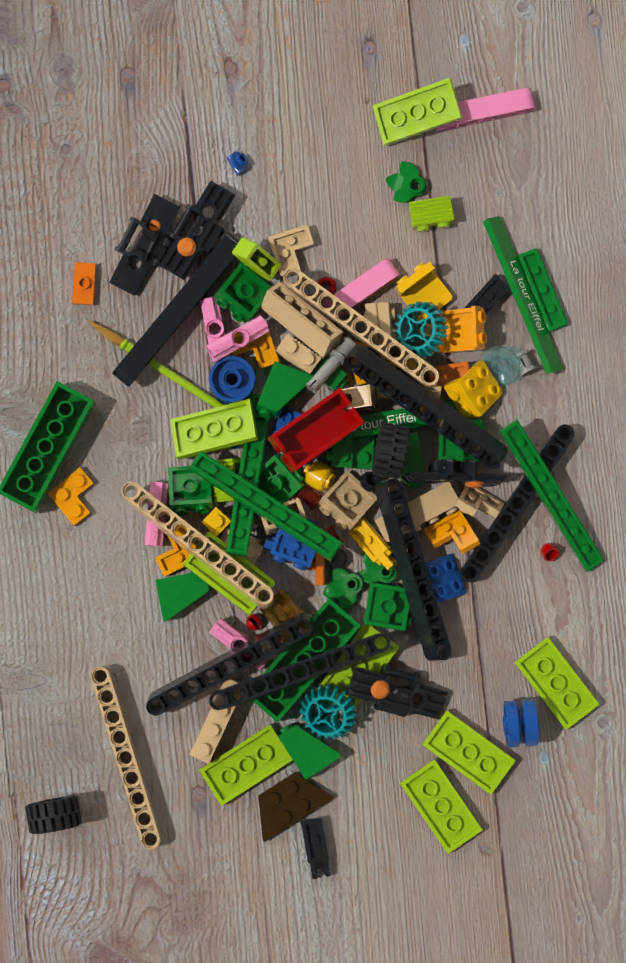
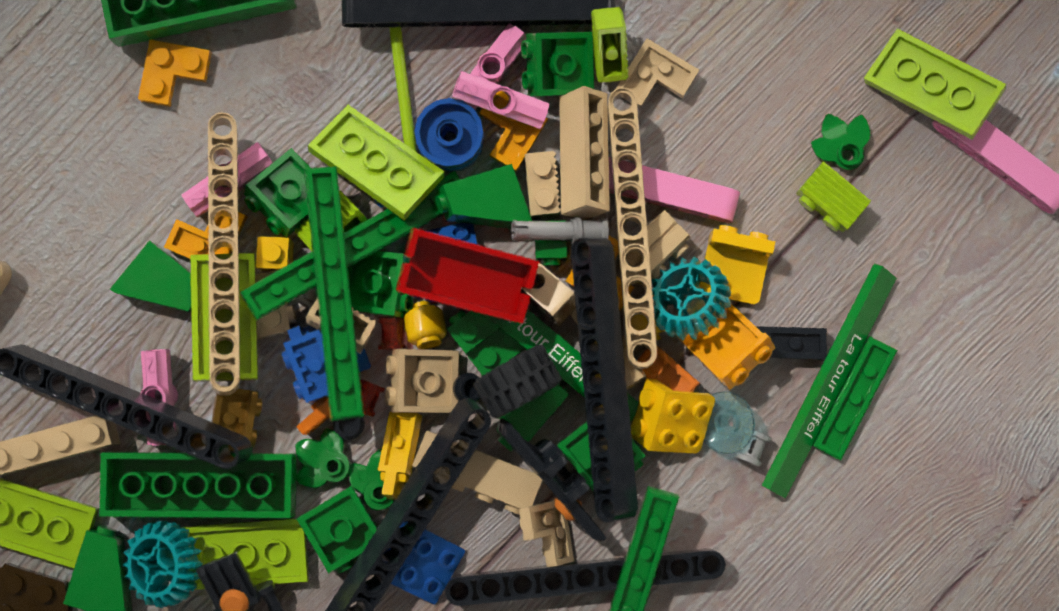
camera: 50 degrees right, 0 degrees up
(257, 618) = (205, 396): red hinge -> none
(288, 671) = (159, 491): black beam -> none
(327, 280) = (656, 148): red plate -> none
(452, 527) = (495, 527): light orange plate -> none

